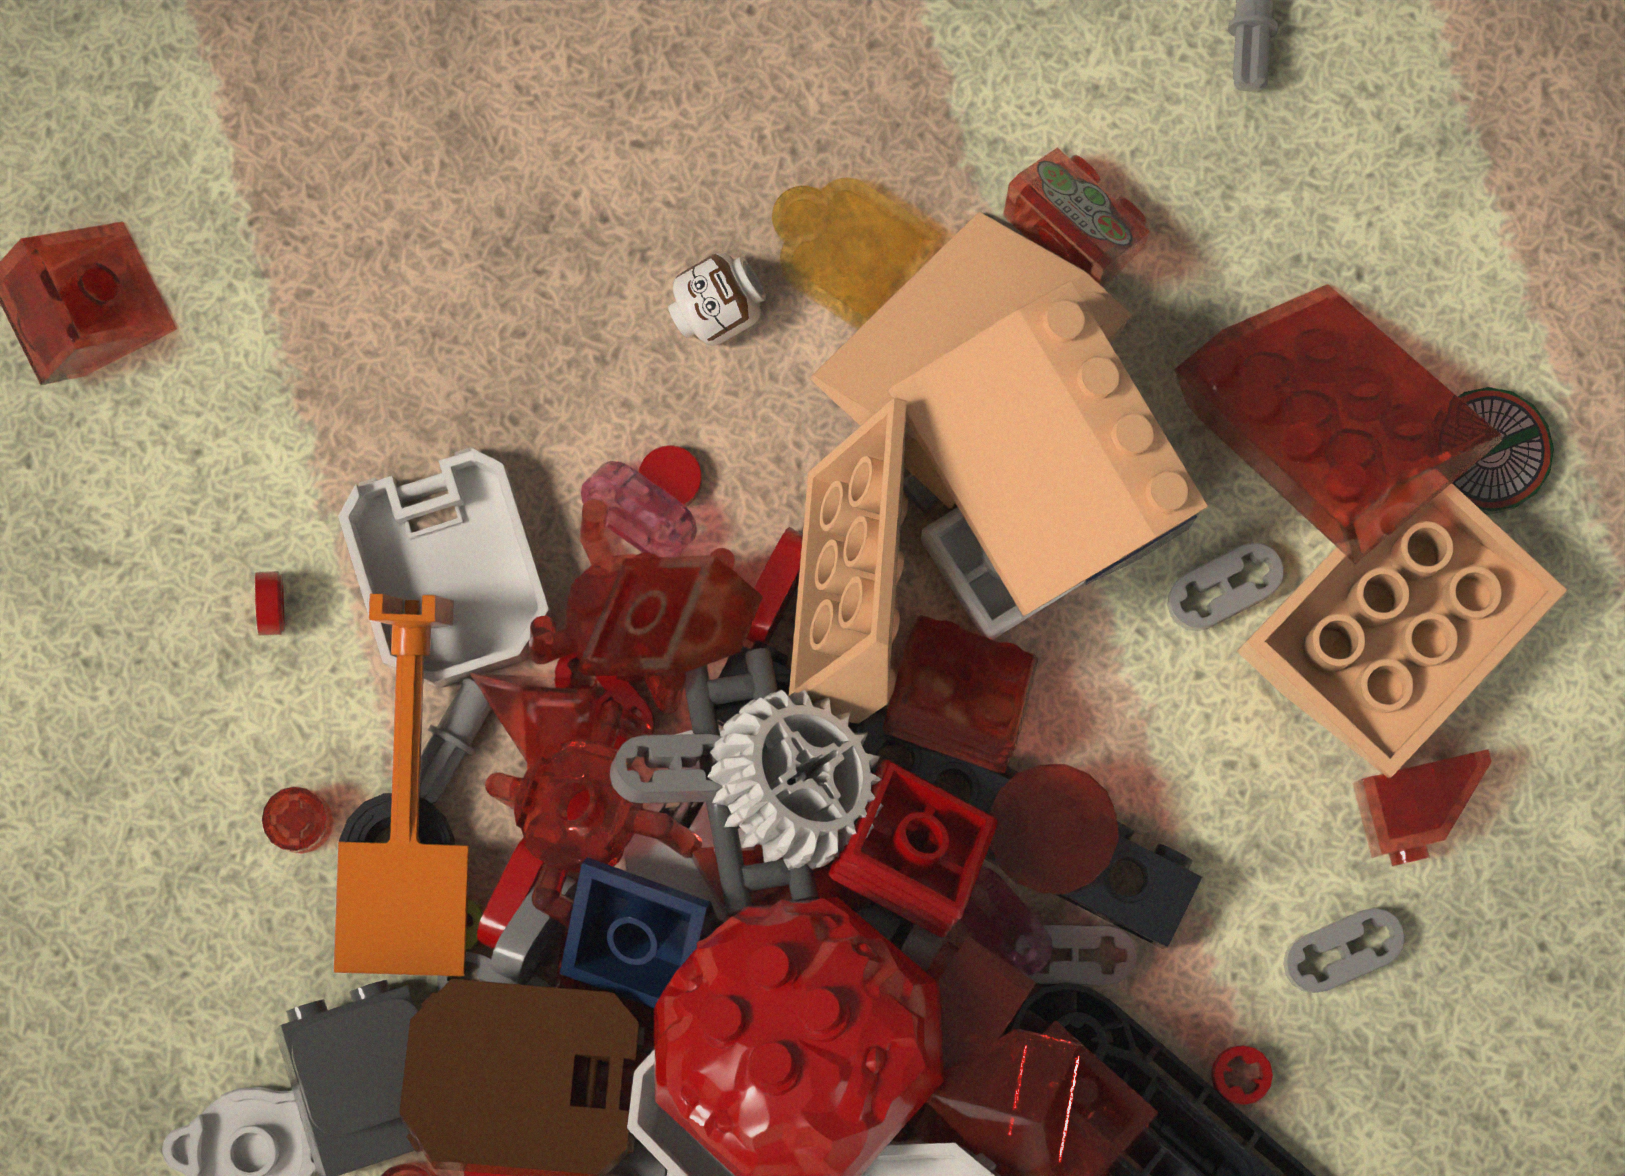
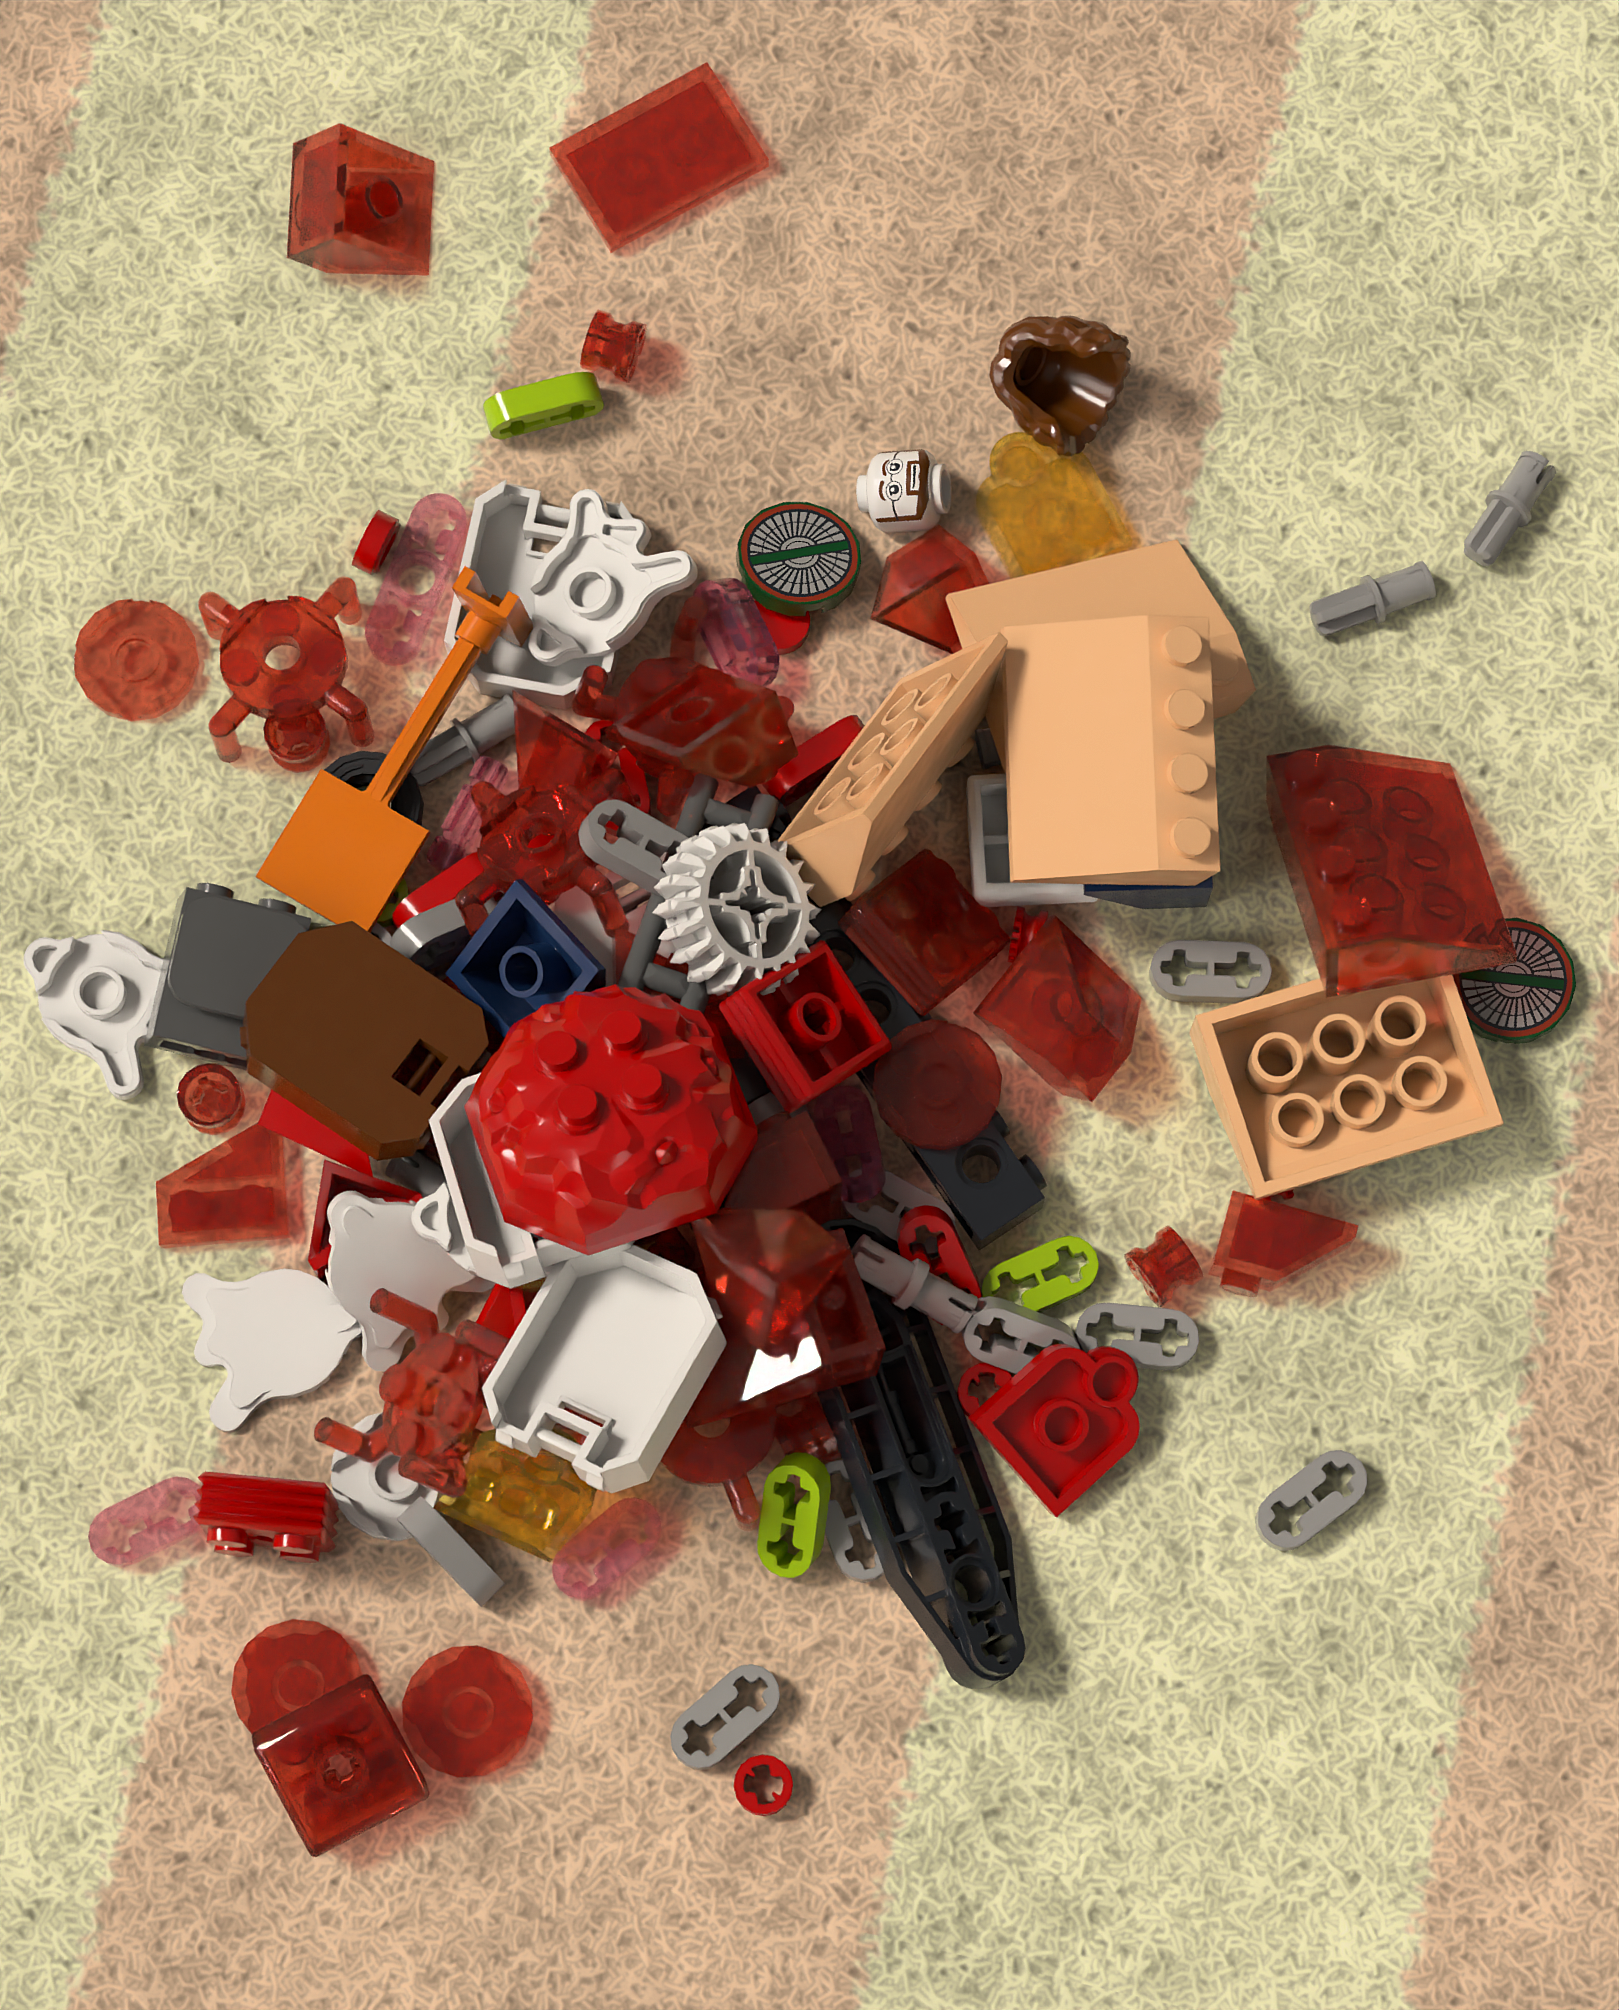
camera: 25 degrees right, 5 degrees down
(133, 831) = (139, 680): none -> clear red tile
(277, 785) = (288, 693): none -> clear red plate
(302, 571) = (416, 532): none -> clear pink beam
(324, 109) = (659, 157): none -> clear red tile
(349, 394) = (543, 404): none -> lime beam
(381, 306) = (613, 346): none -> clear red wheel
(490, 815) = (463, 820): none -> clear pink axle
(494, 537) = (599, 584): none -> white tile
(656, 411) = (798, 558): none -> tile
(777, 372) = (918, 582): none -> clear red slope
(799, 123) = (1060, 378): none -> reddish brown hair
(1052, 642) = (1028, 927): none -> red bush
(1073, 217) = (1254, 583): clear red slope -> none
(1124, 697) = (1063, 1012): none -> clear red slope
(1132, 997) = (950, 1247): none -> red beam
(1132, 1022) = (912, 1284): none -> light grey pin
(1182, 171) = (1372, 599): none -> light grey axle
(1243, 957) = (1038, 1261): none -> lime beam
(1247, 1006) = (1016, 1321): none -> light grey beam
(1326, 1065) = (1063, 1420): none -> red plate
(1334, 875) = (1164, 1266): none -> clear red wheel
(1590, 1017) = (1301, 1487): none -> light grey beam

